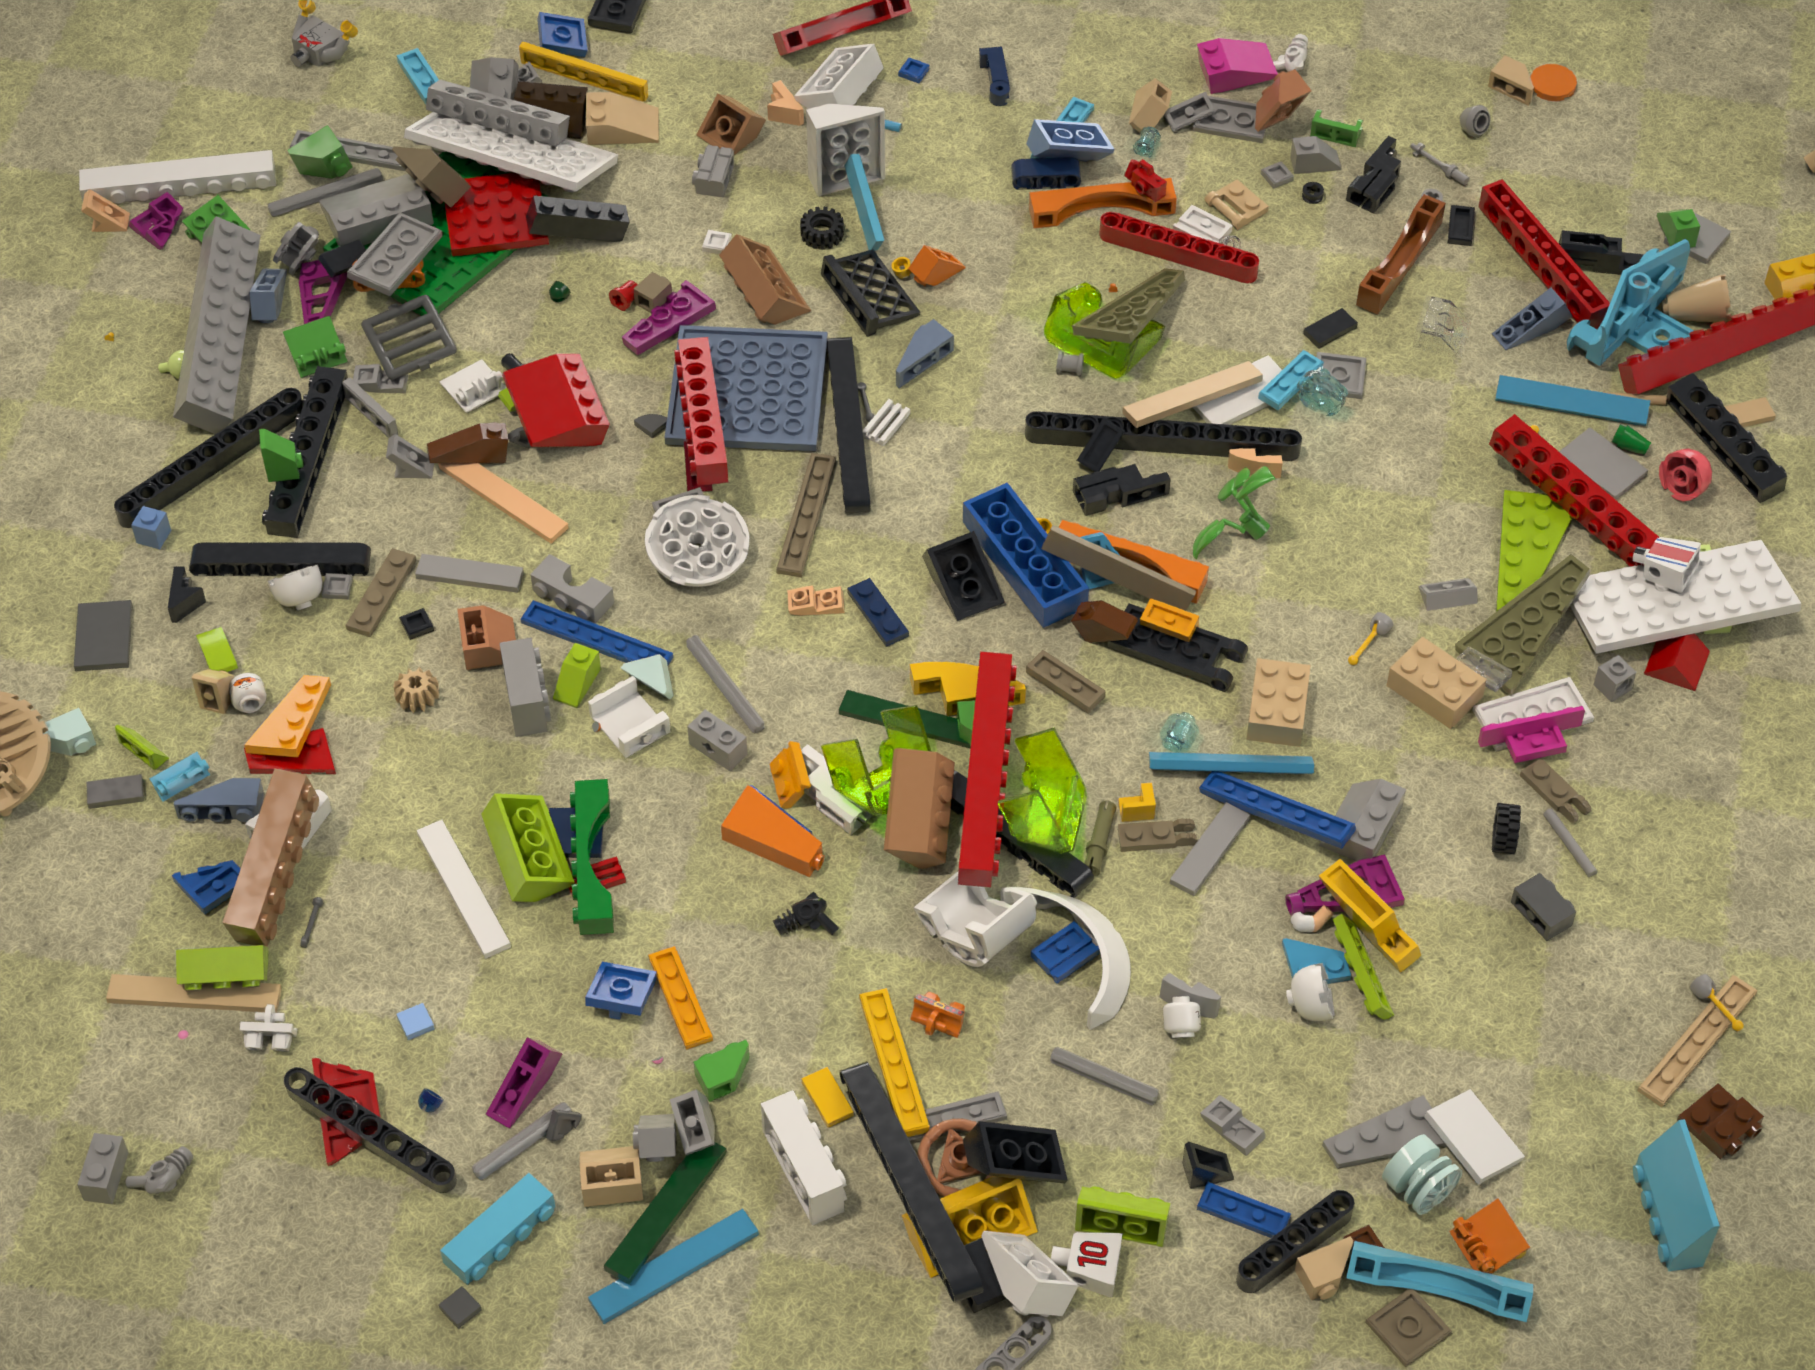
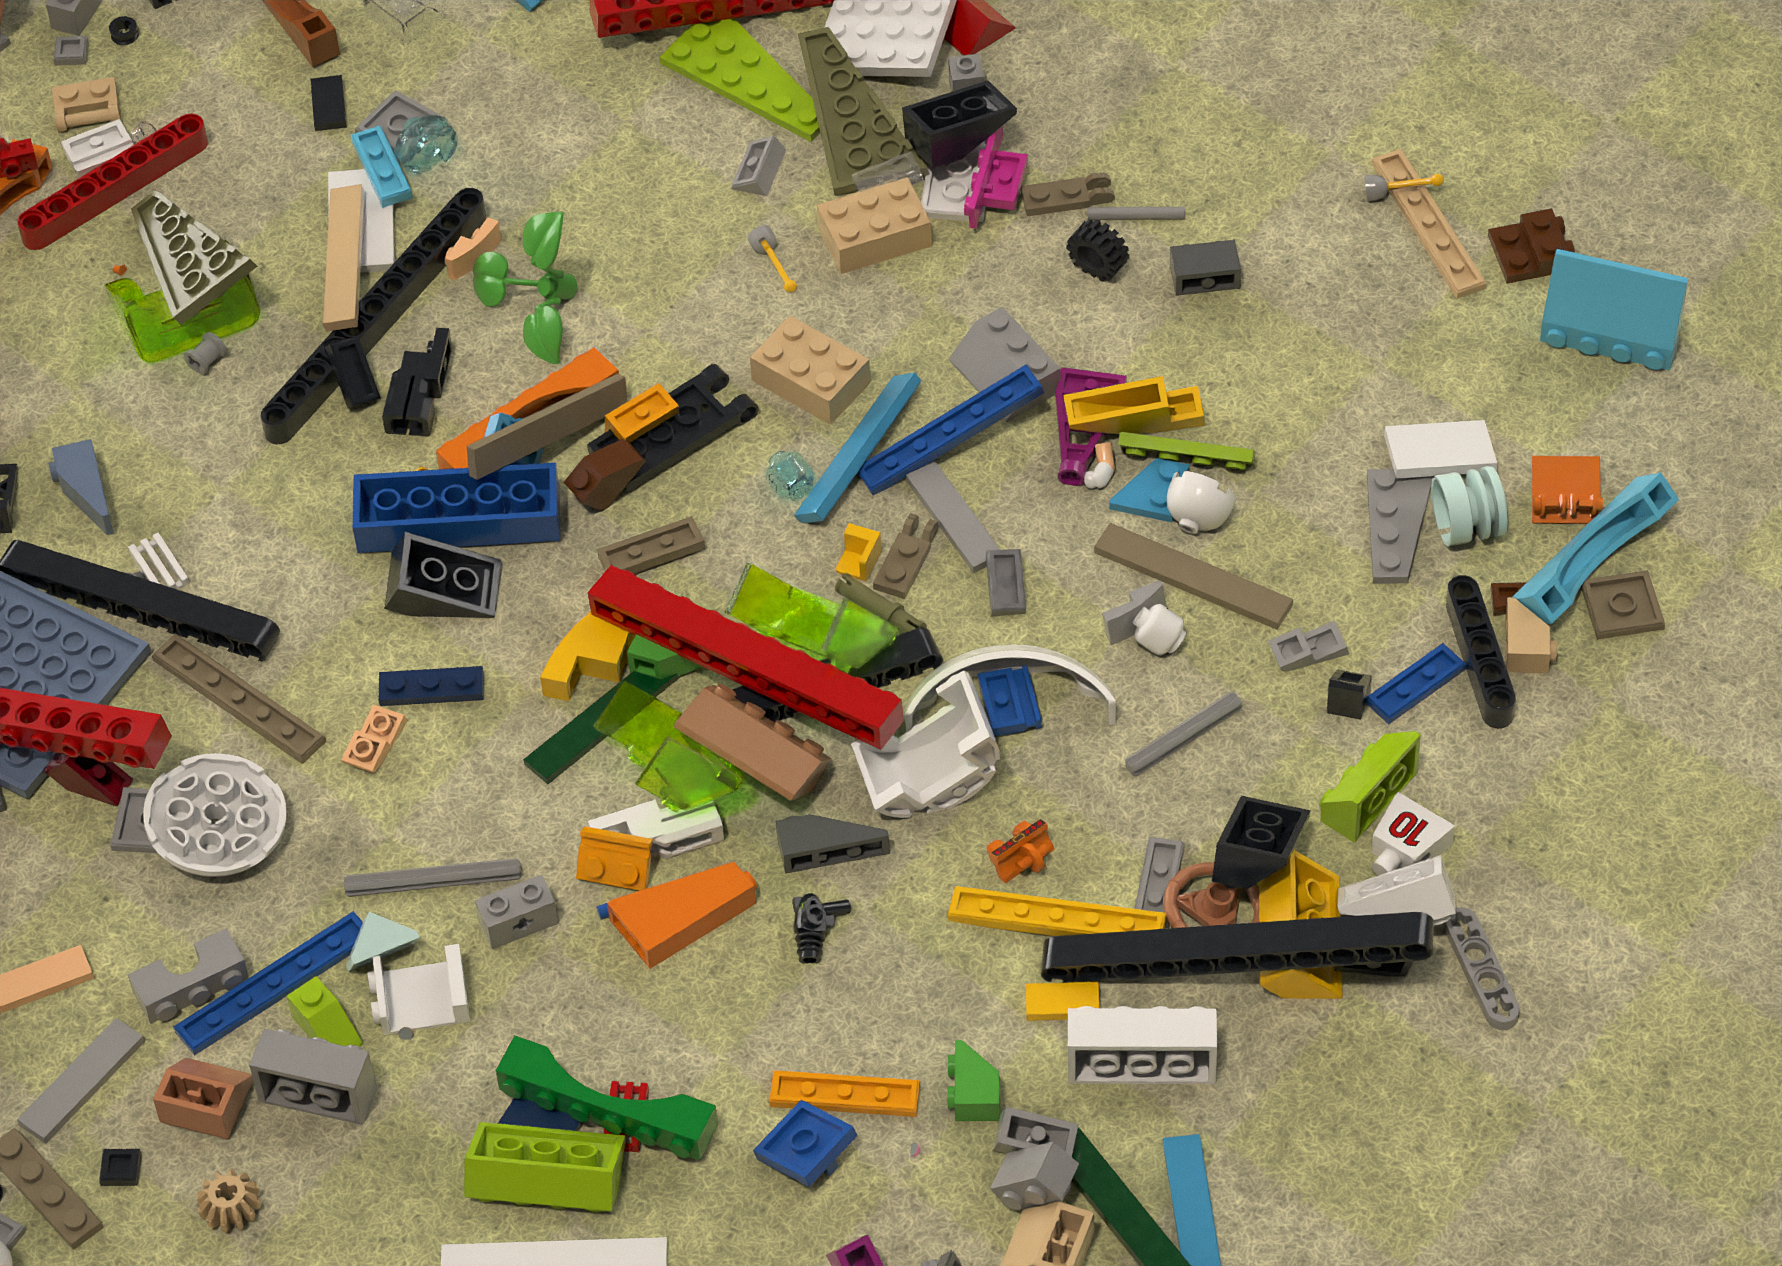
camera: 60 degrees left, 0 degrees up
(871, 885) = (822, 841): none -> dark grey slope
(1169, 905) = (1005, 582): none -> flat silver tile
(1252, 1023) = (1193, 576): none -> dark tan tile
(1556, 684) = (955, 122): none -> black slope

